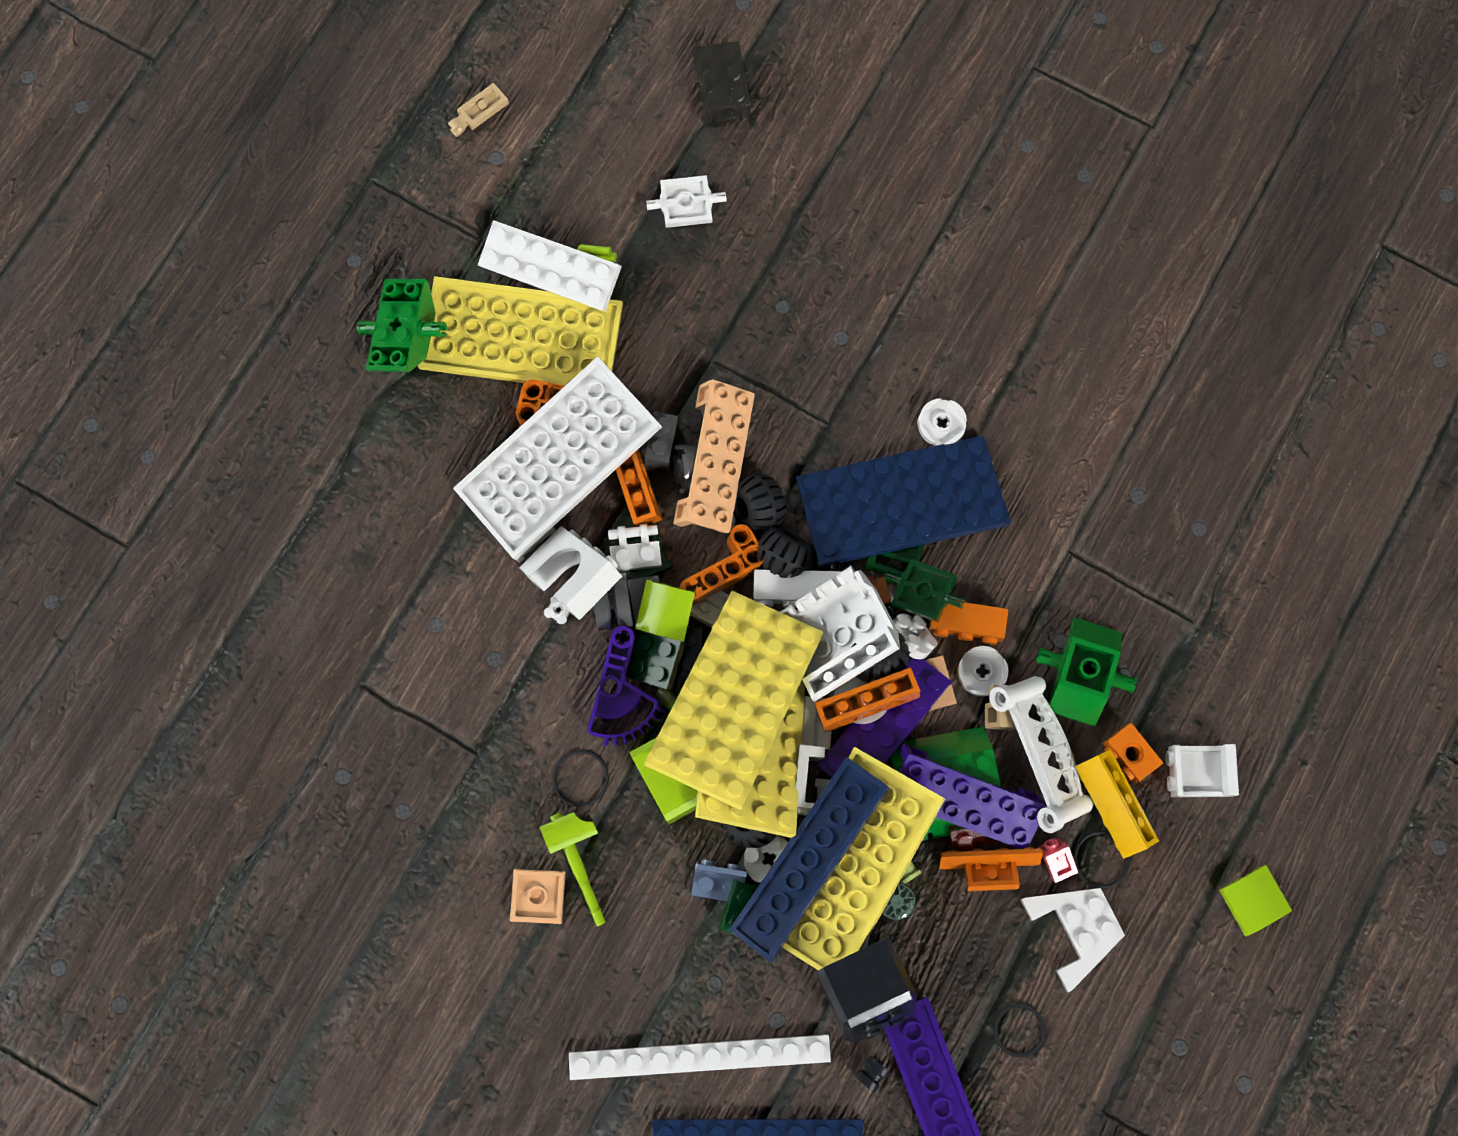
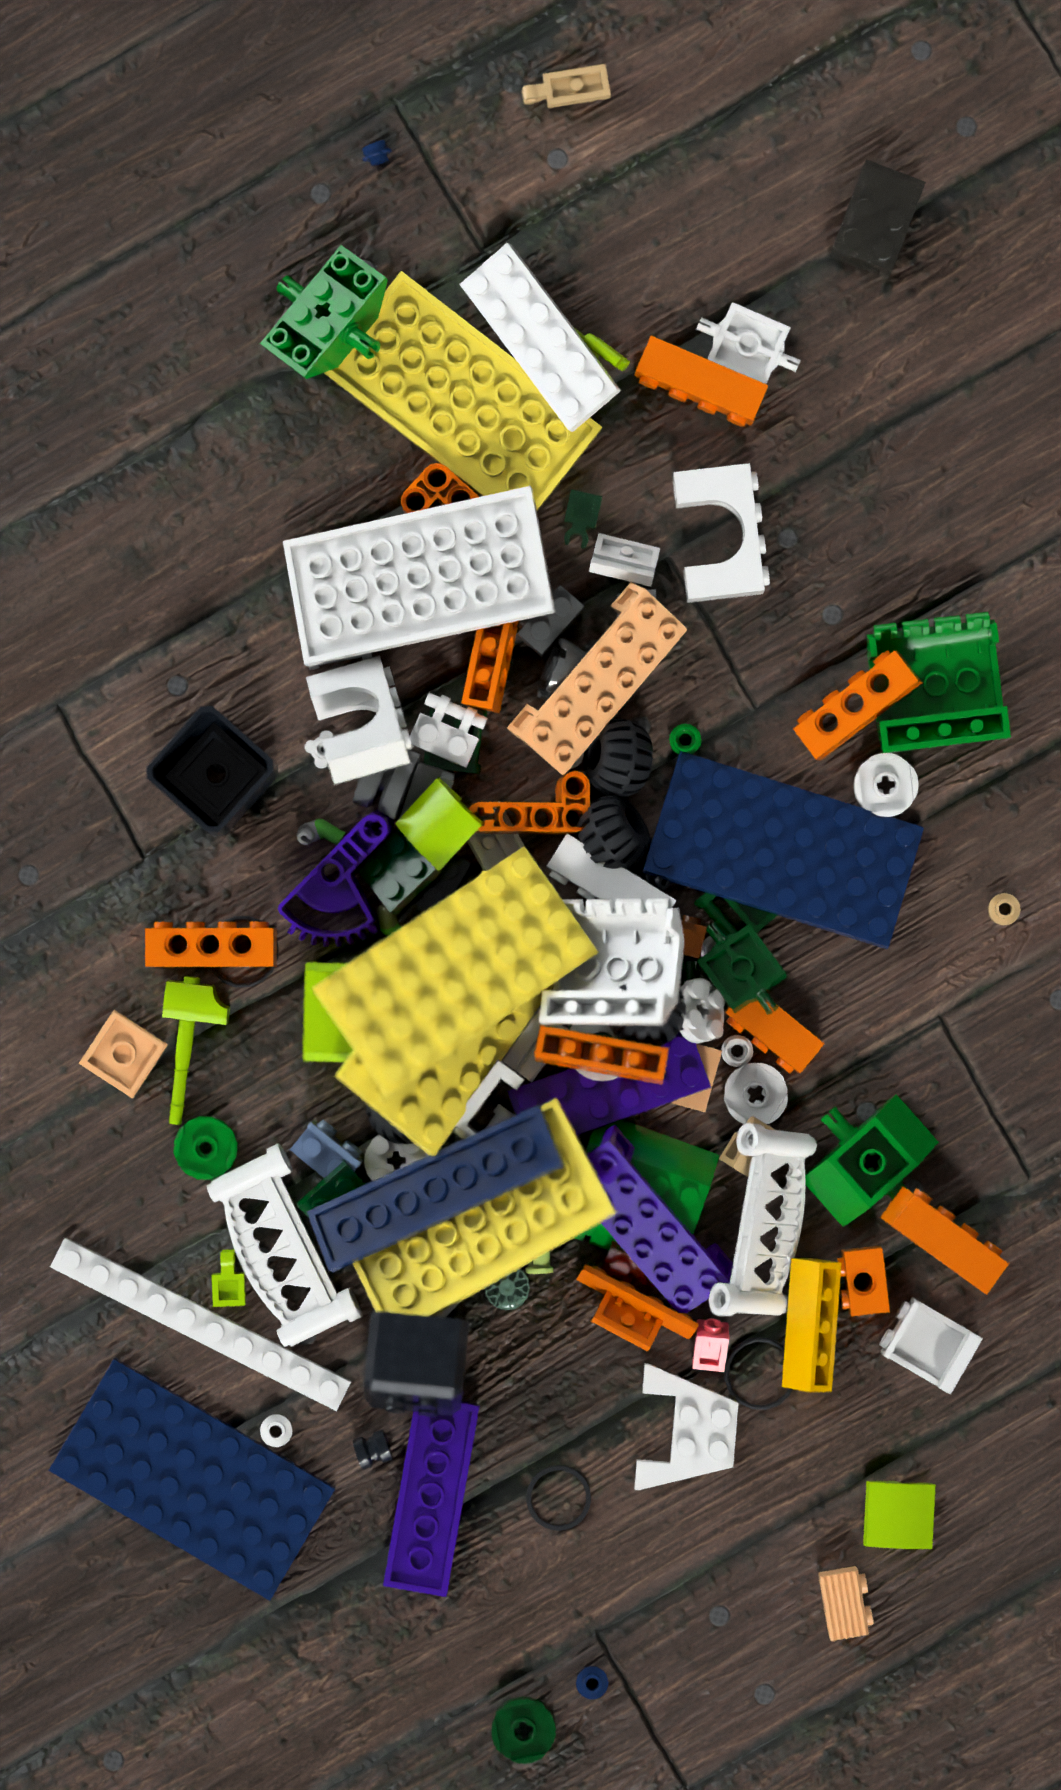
camera: 35 degrees right, 10 degrees up
(376, 214) = (376, 153): none -> dark blue plate
(475, 647) = (184, 764): none -> black plate
(518, 796) = (160, 952): none -> orange brick
(585, 665) = (317, 830): none -> arm
(618, 928) = (188, 1147): none -> green plate
(641, 363) = (582, 513): none -> clear green plate
(669, 239) = (701, 381): none -> orange brick
(686, 375) = (624, 559): none -> white plate
(703, 1016) = (228, 1286): none -> lime plate
(729, 294) = (732, 489): none -> white arch
(777, 990) = (263, 1181): none -> white piece
(790, 1095) = (280, 1421): none -> white plate
(794, 460) = (689, 730): none -> green plate
(900, 342) = (901, 682): none -> orange brick
(934, 338) = (959, 685): none -> green slope
(957, 644) = (747, 1050): none -> white plate
(1064, 464) = (994, 913): none -> tan plate
(1169, 692) = (945, 1240): none -> orange brick
(1259, 985) = (844, 1603): none -> light nougat brick

